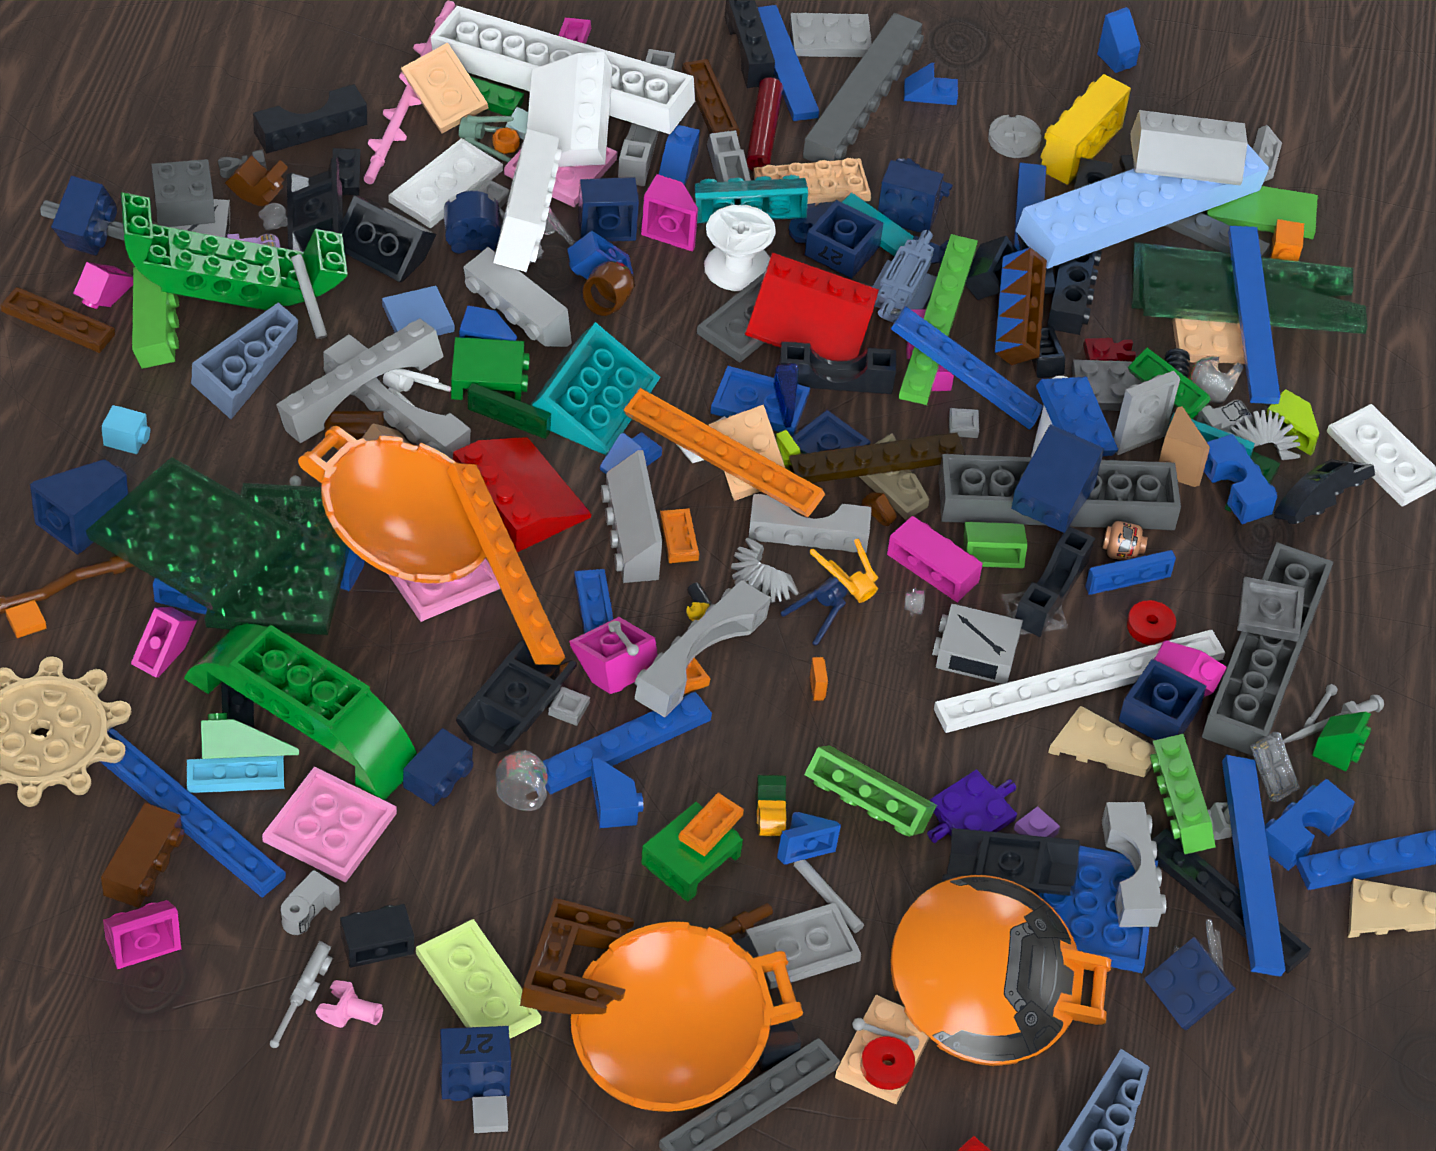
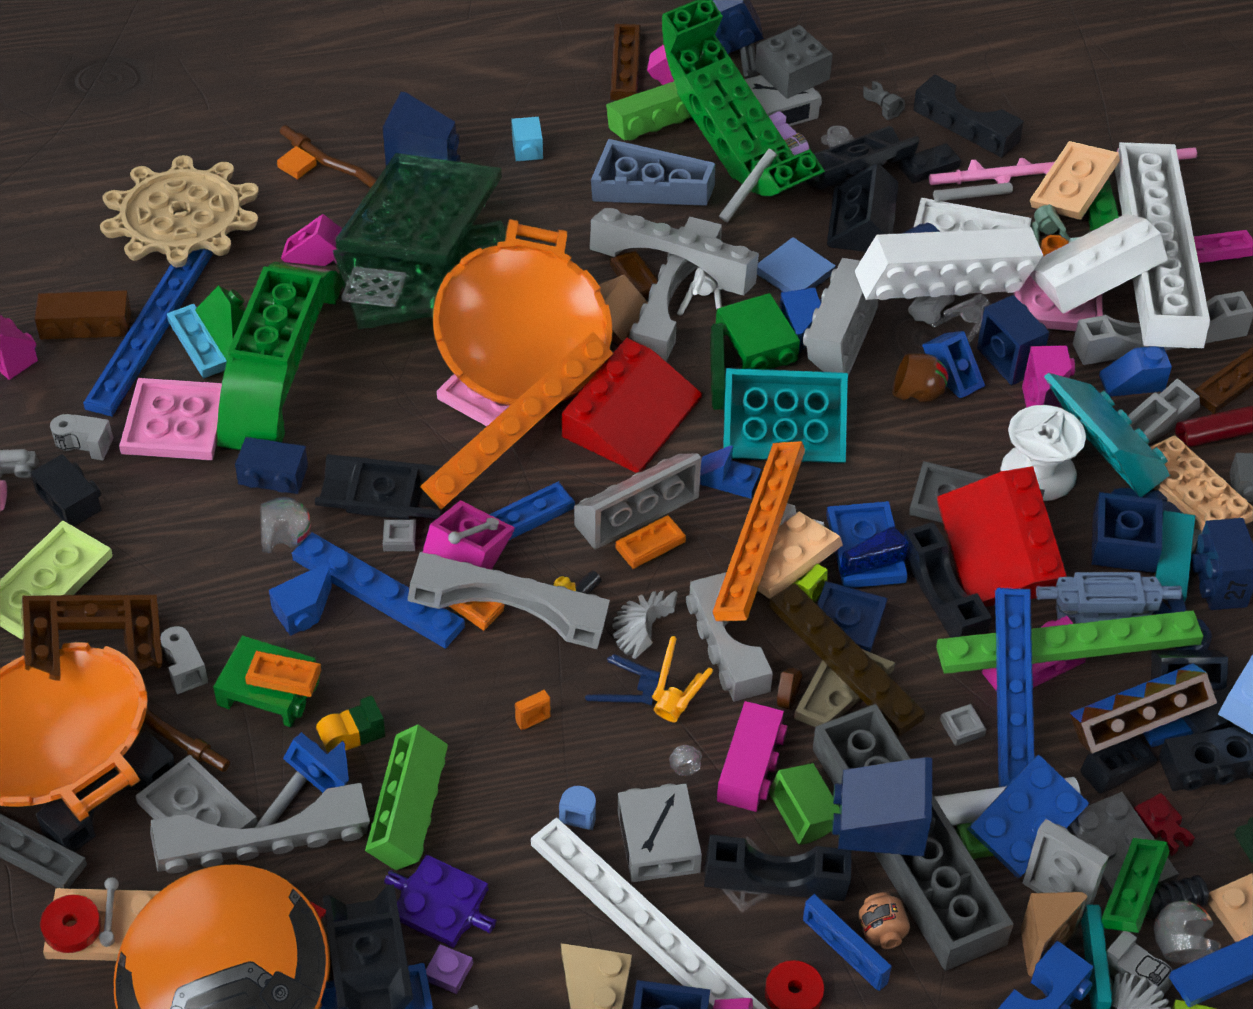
camera: 70 degrees right, 0 degrees up
(255, 183) = (863, 108): reddish brown brick -> none
(301, 612) = (374, 299): none -> clear window
(405, 159) = (973, 191): none -> light grey bar
(633, 901) = (180, 651): none -> light grey leg
(854, 947) = (188, 841): none -> light grey arch
(931, 685) = (578, 807): none -> medium blue brick

